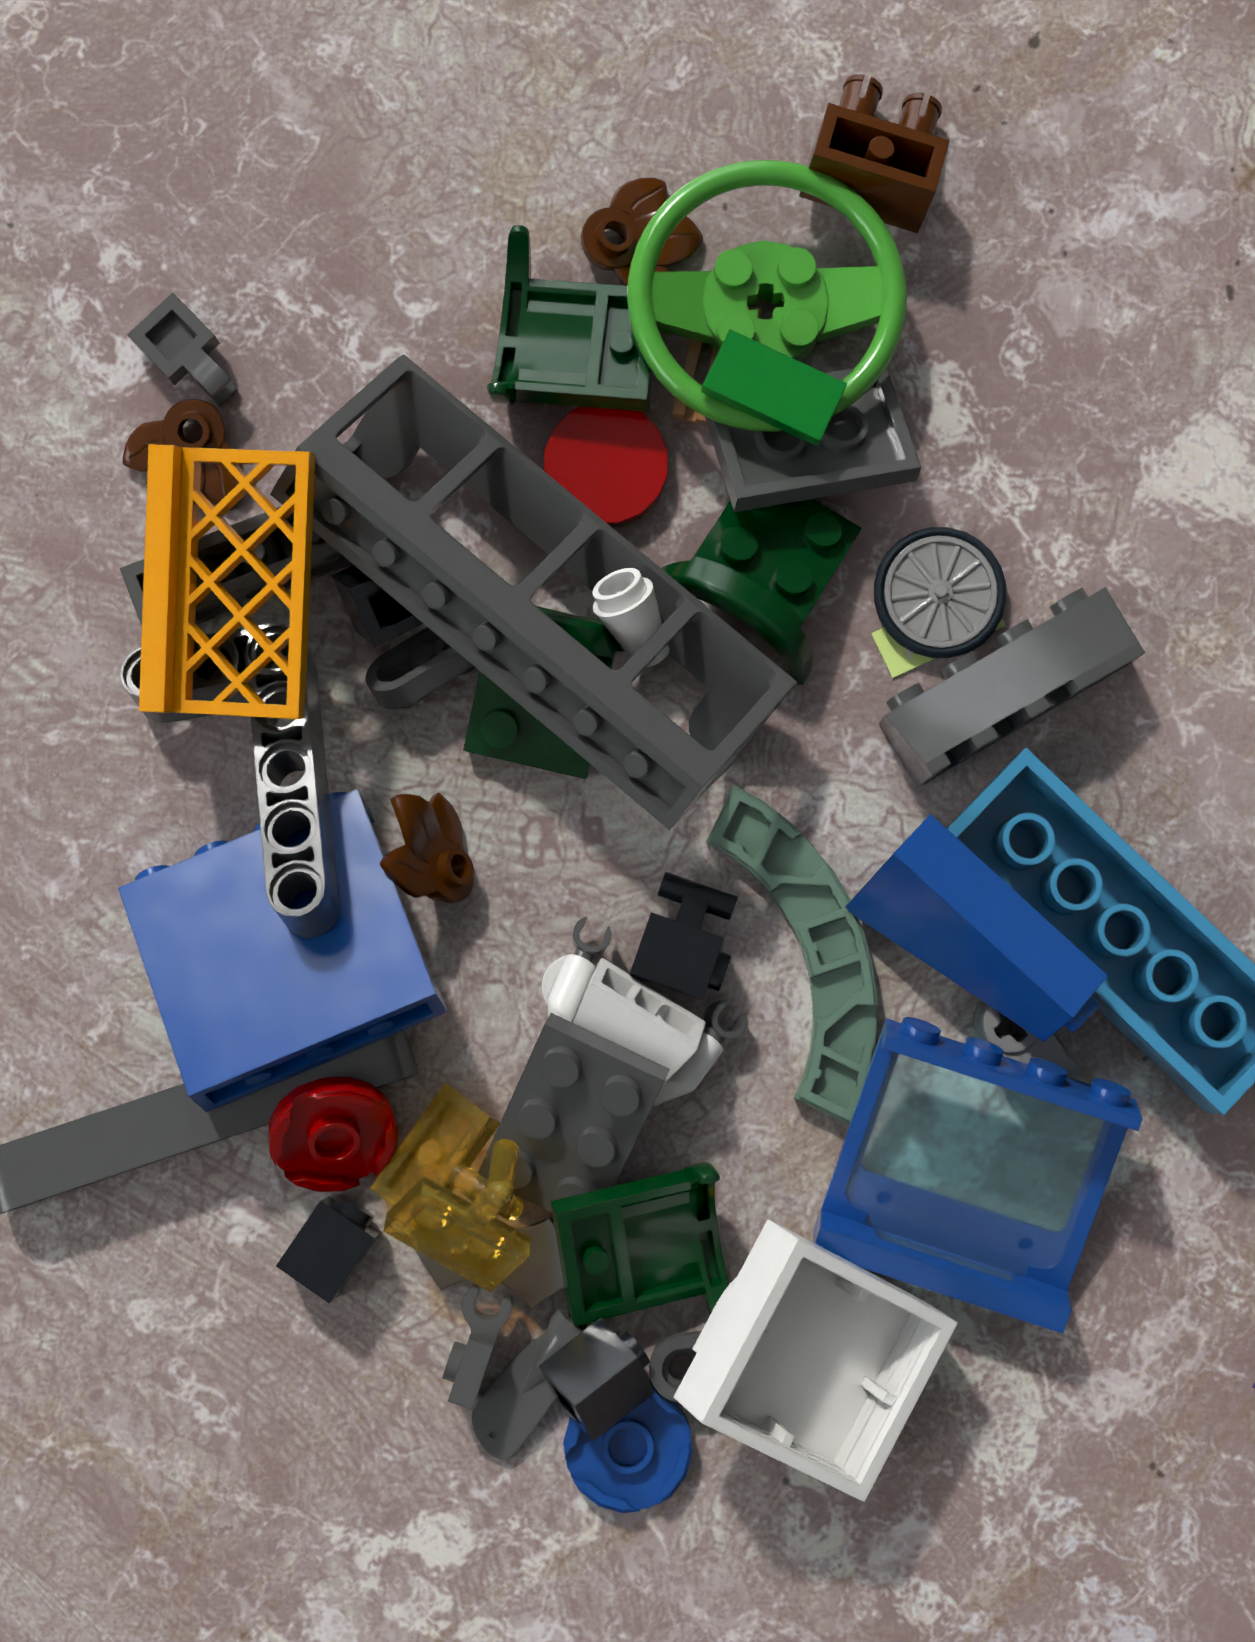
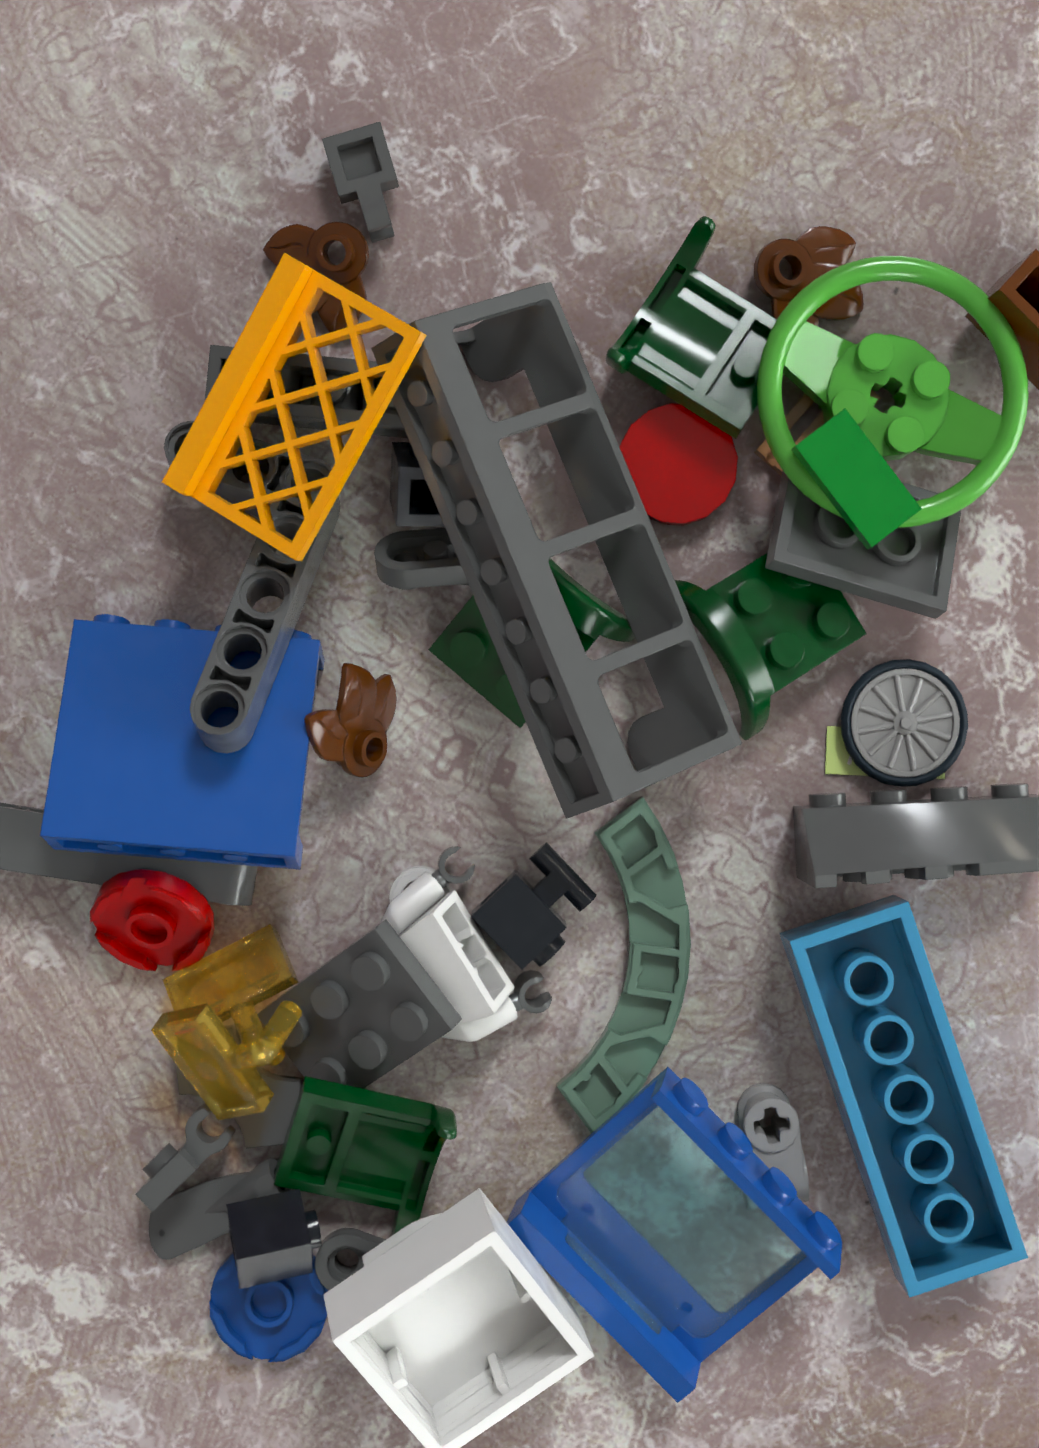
camera: 20 degrees right, 5 degrees up
(330, 1246) = (103, 1012): black brick -> none
(628, 609) = (630, 608): white cone -> none
(978, 932) = (784, 1037): blue slope -> none

